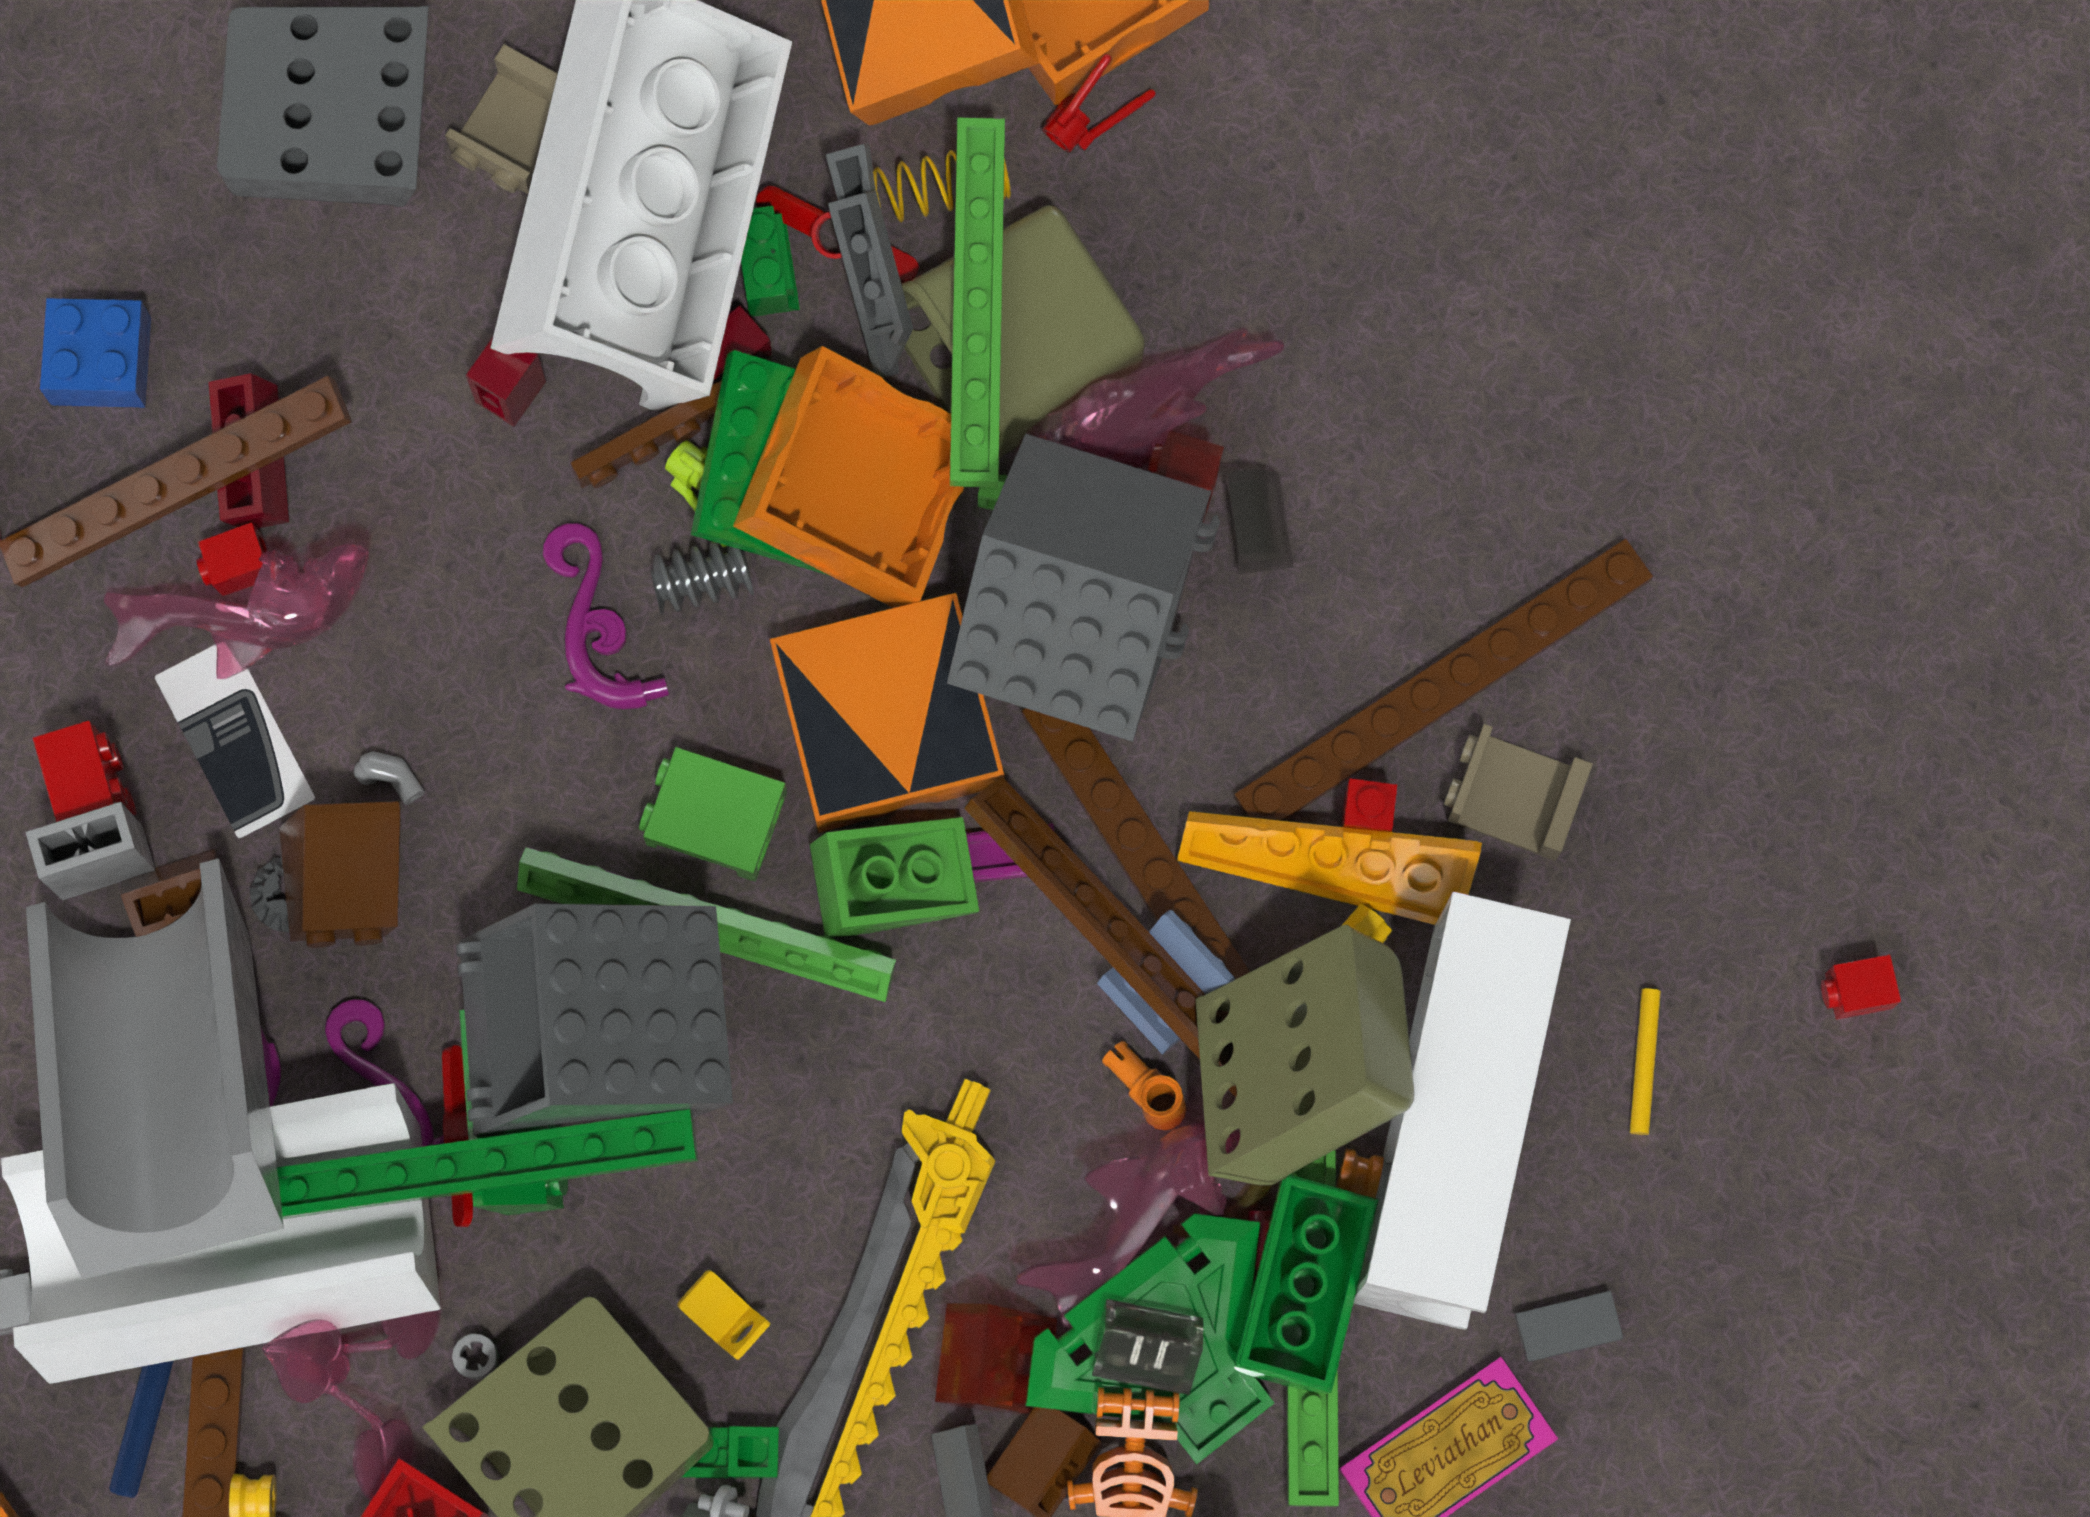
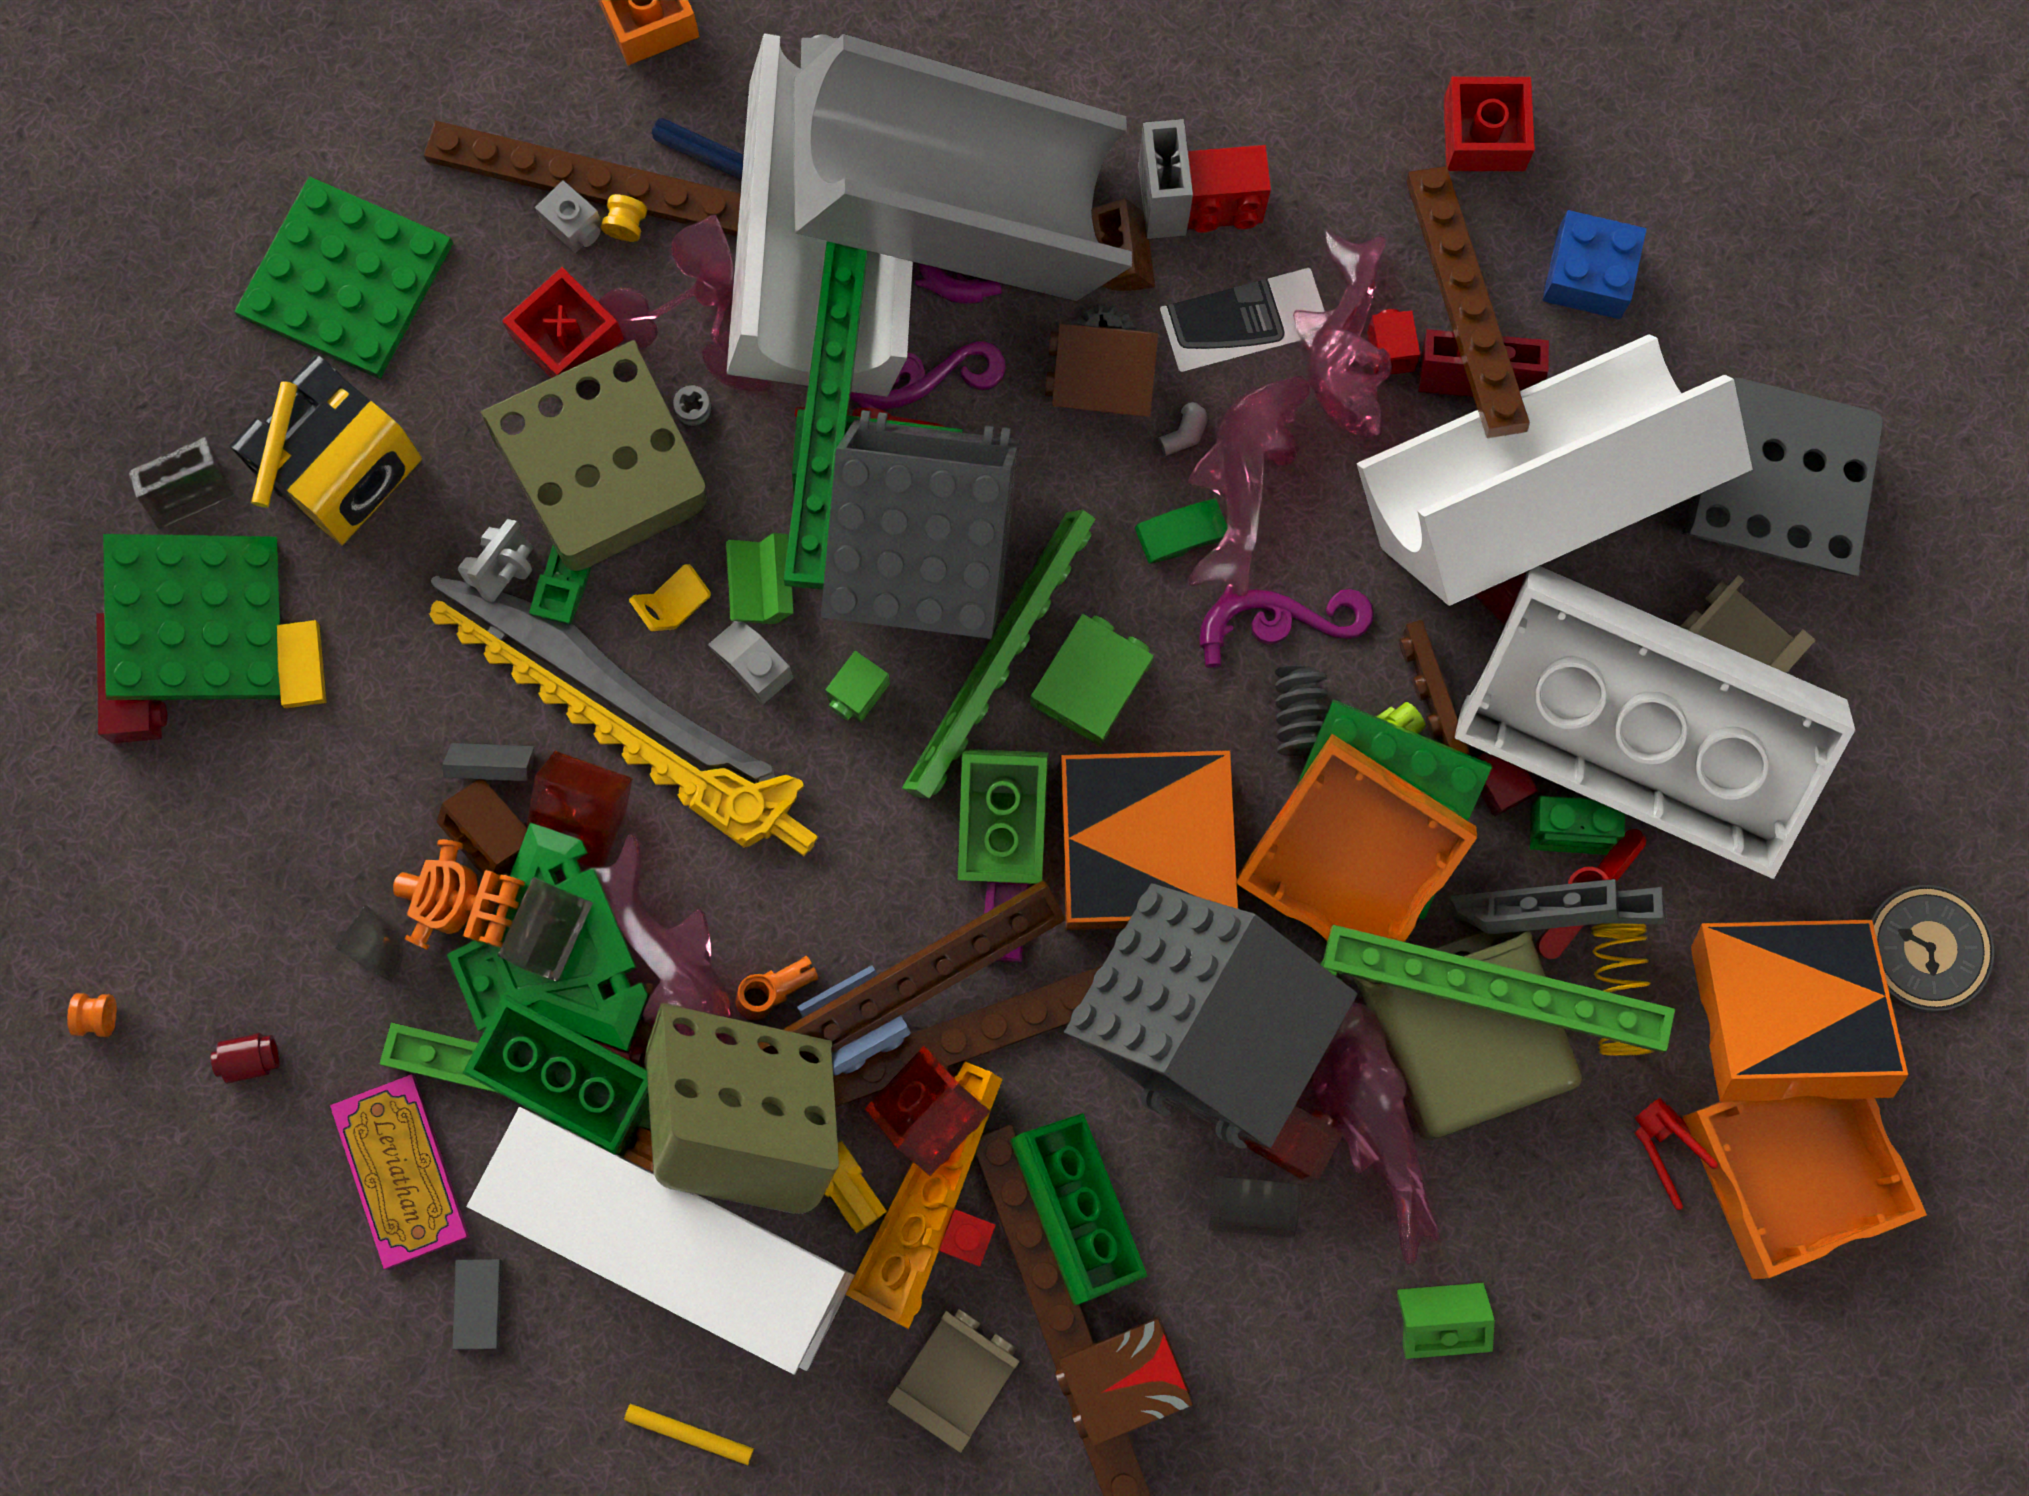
camera: 105 degrees right, 0 degrees up
(359, 293) = (1597, 456): none -> white piece
(396, 699) = (1234, 469): none -> clear pink piece
(514, 752) = (1181, 530): none -> green slope
(676, 1217) = (757, 580): none -> bright green panel
(773, 1207) = (752, 660): none -> light grey slope
(782, 1076) = (856, 687): none -> bright green brick
(1246, 878) = (927, 1111): none -> clear red brick
(1308, 700) = (1078, 1208): none -> green brick
(1327, 304) = (1446, 1320): none -> bright green panel
(1476, 608) = (1124, 1382): none -> reddish brown slope

